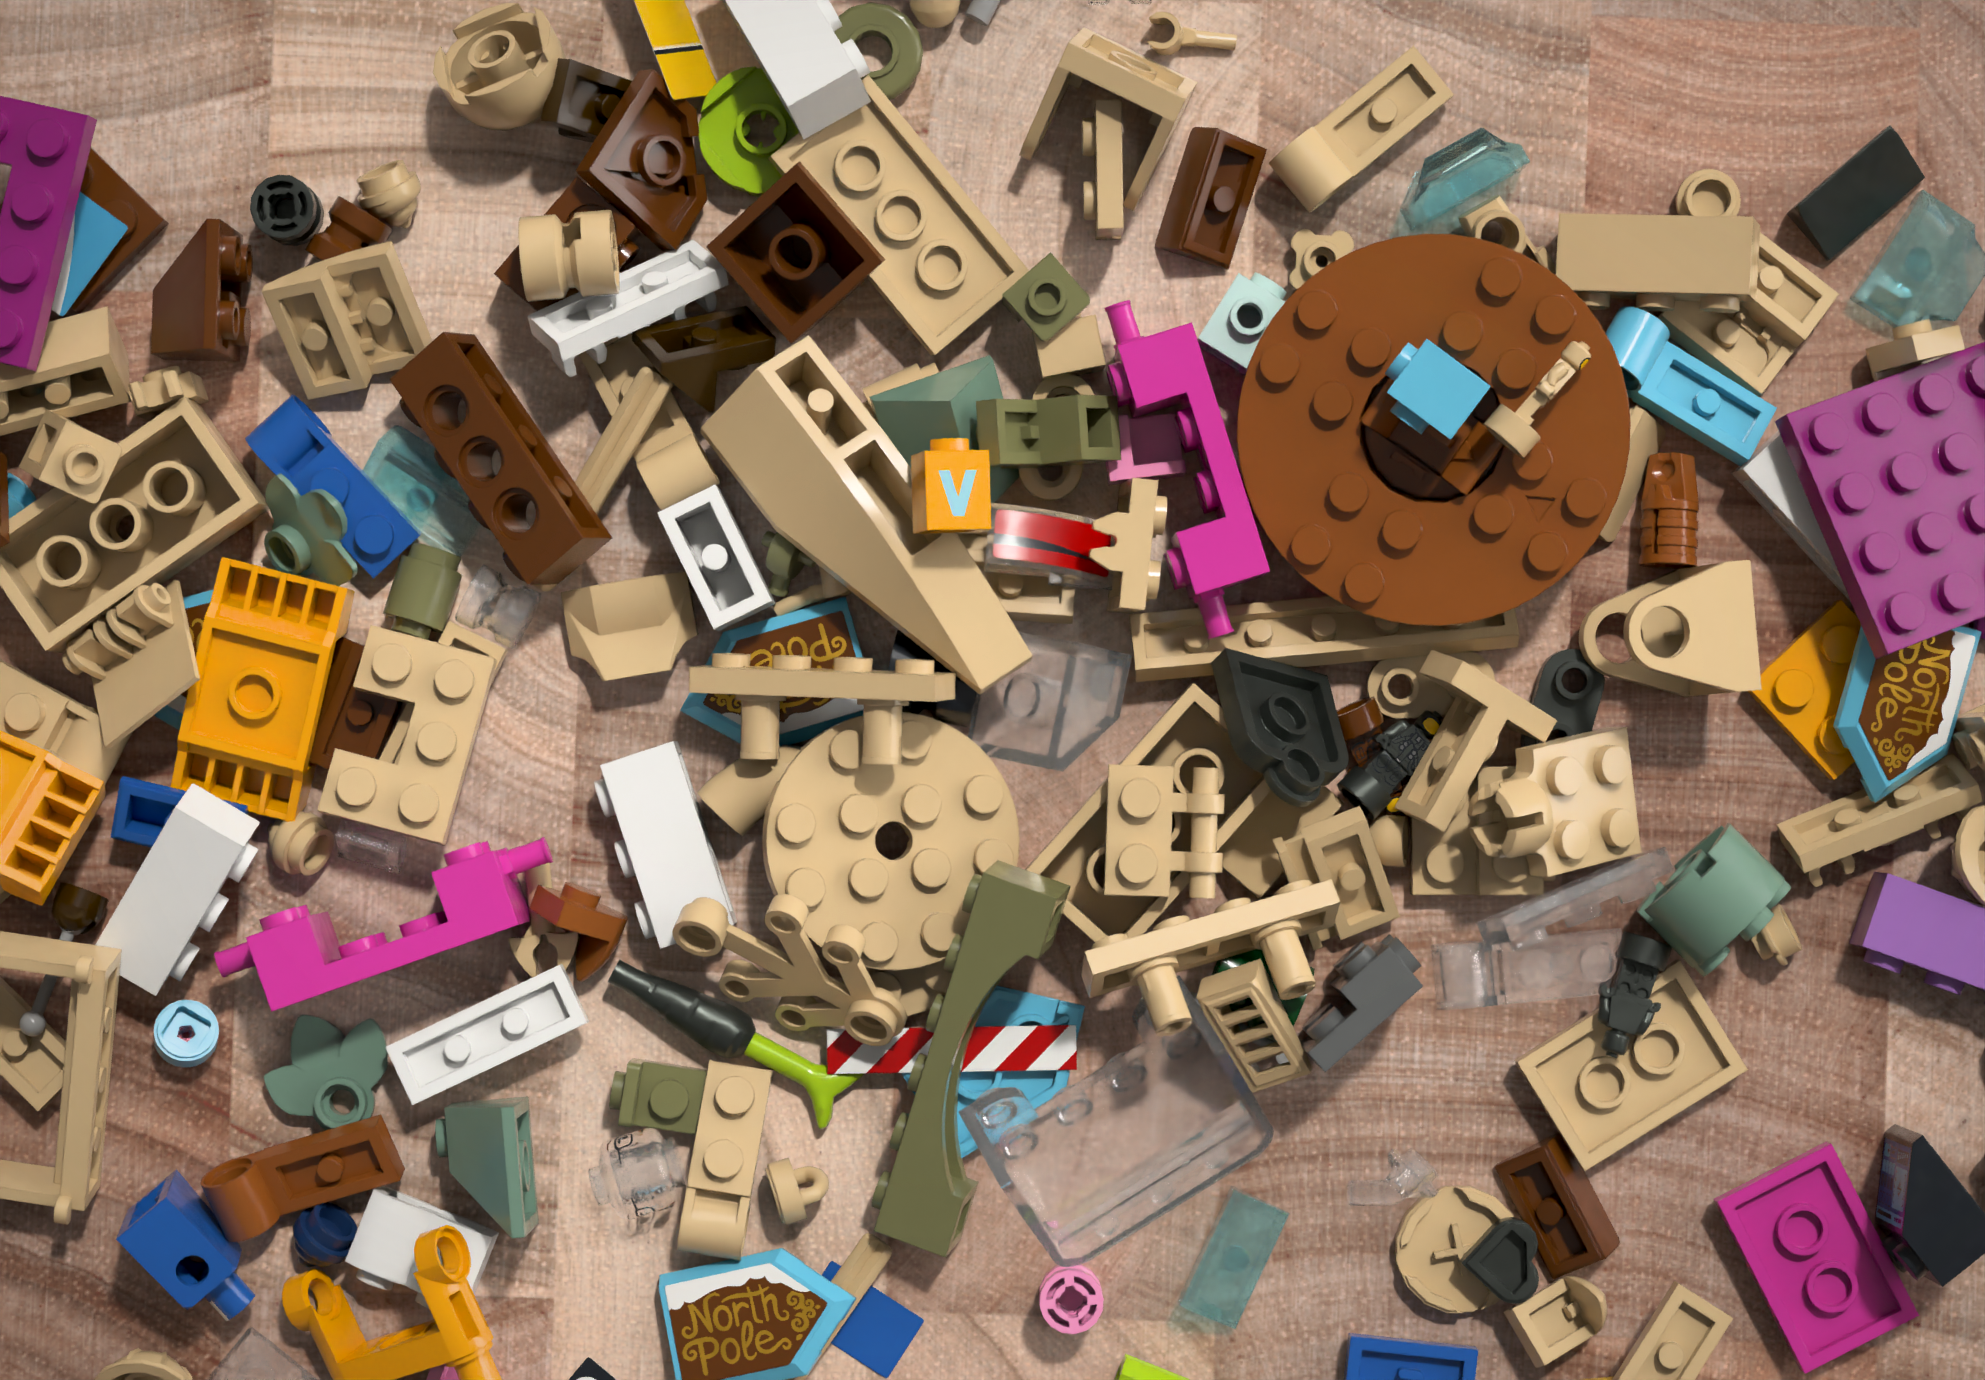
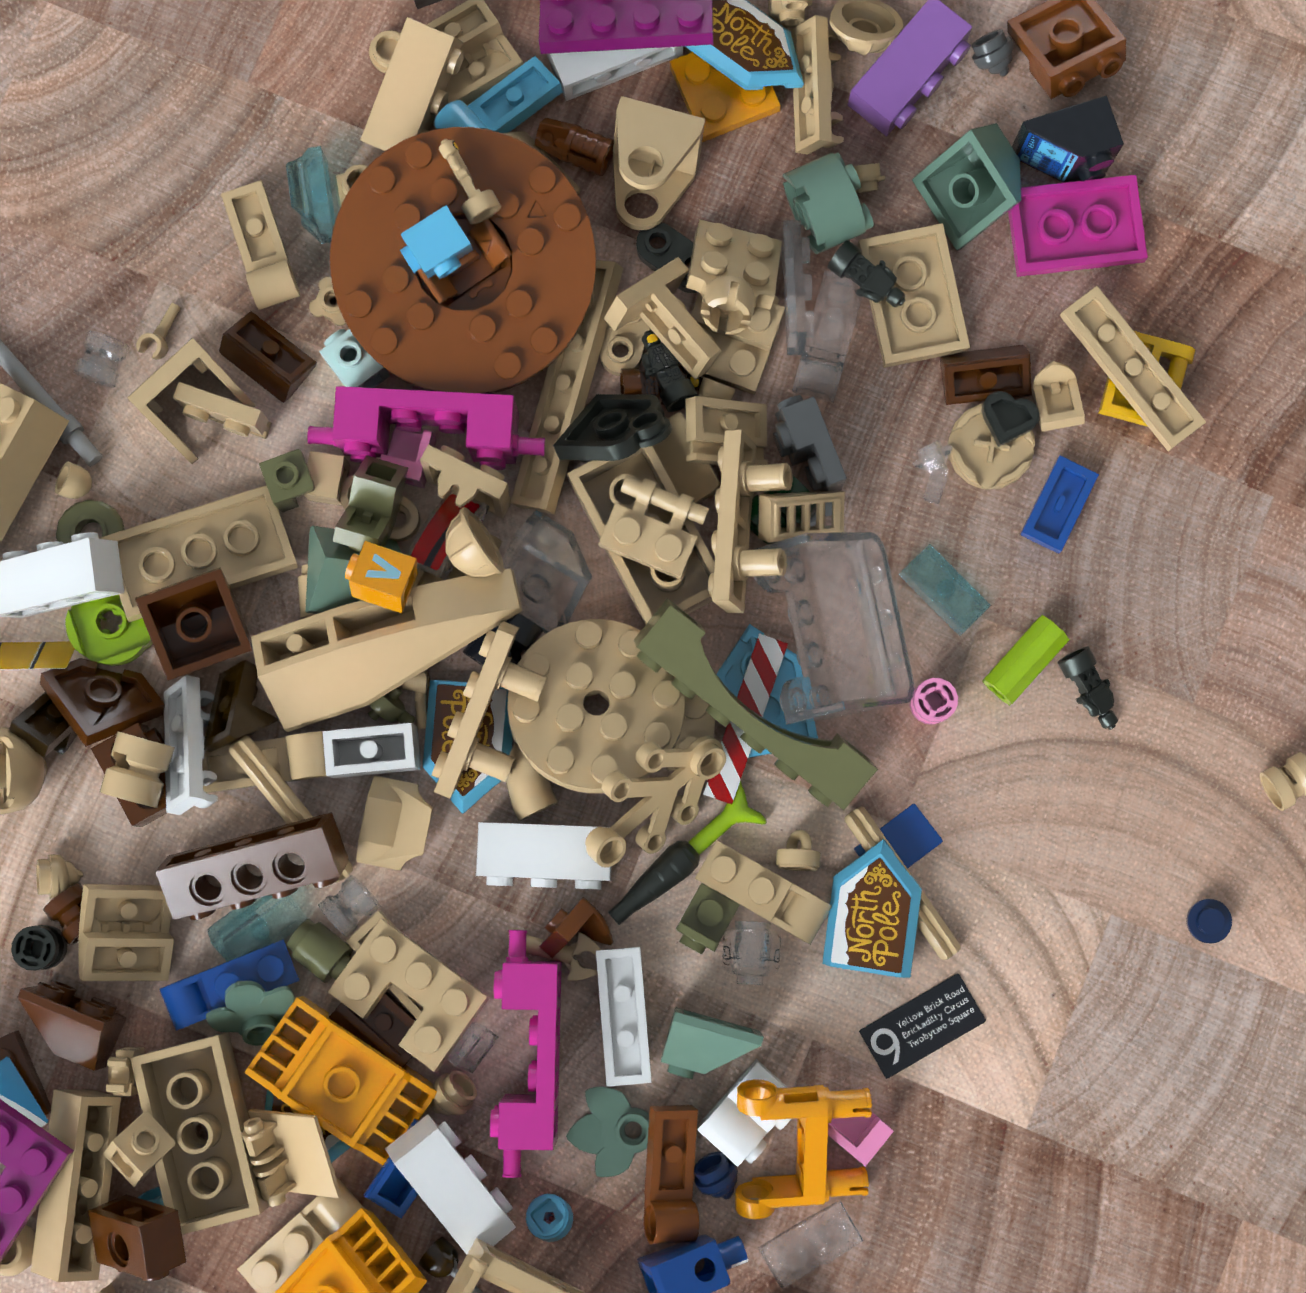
camera: 65 degrees left, 5 degrees down
(1041, 593) = (472, 547): none -> tan piece
(1819, 1092) = (972, 183): none -> sand green slope

